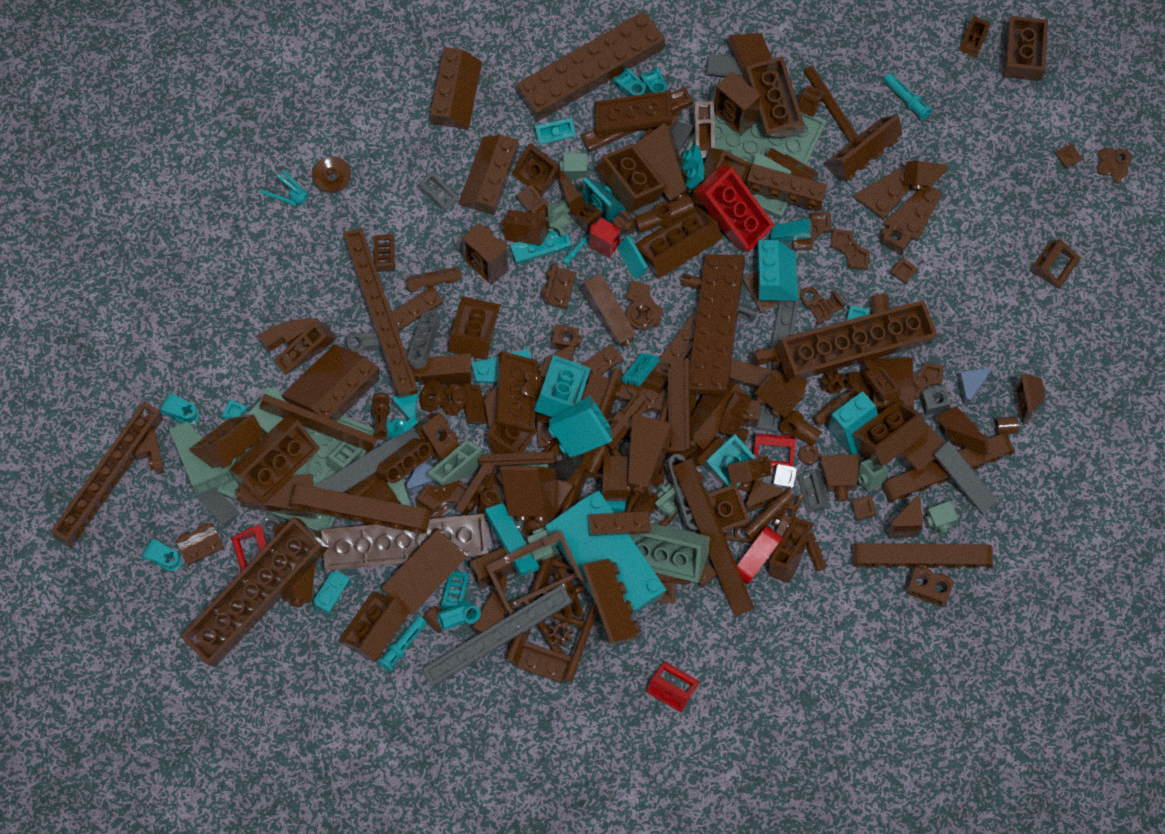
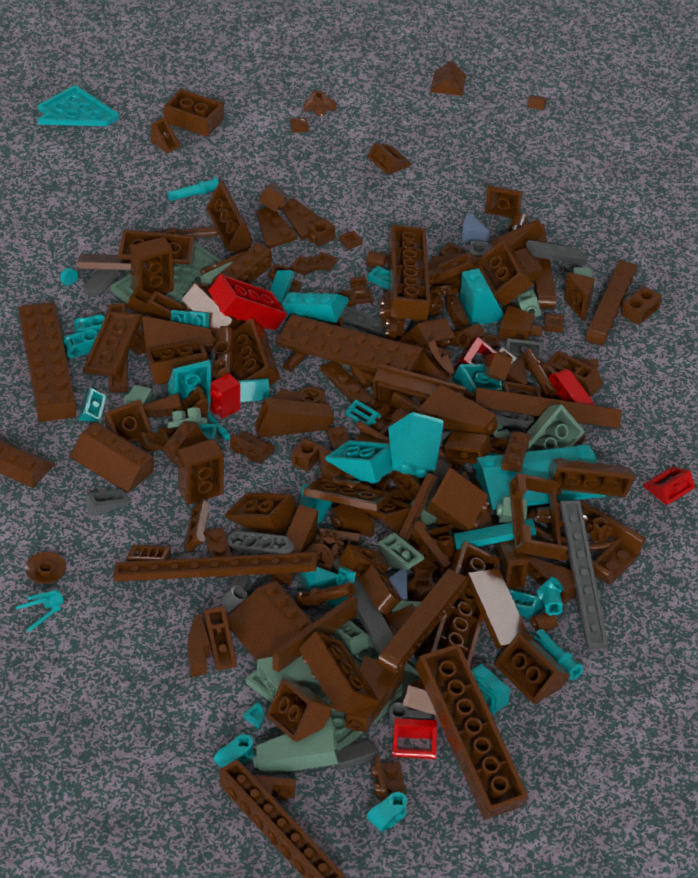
camera: 70 degrees left, 25 degrees down
(720, 36) = (68, 276): none -> teal tile

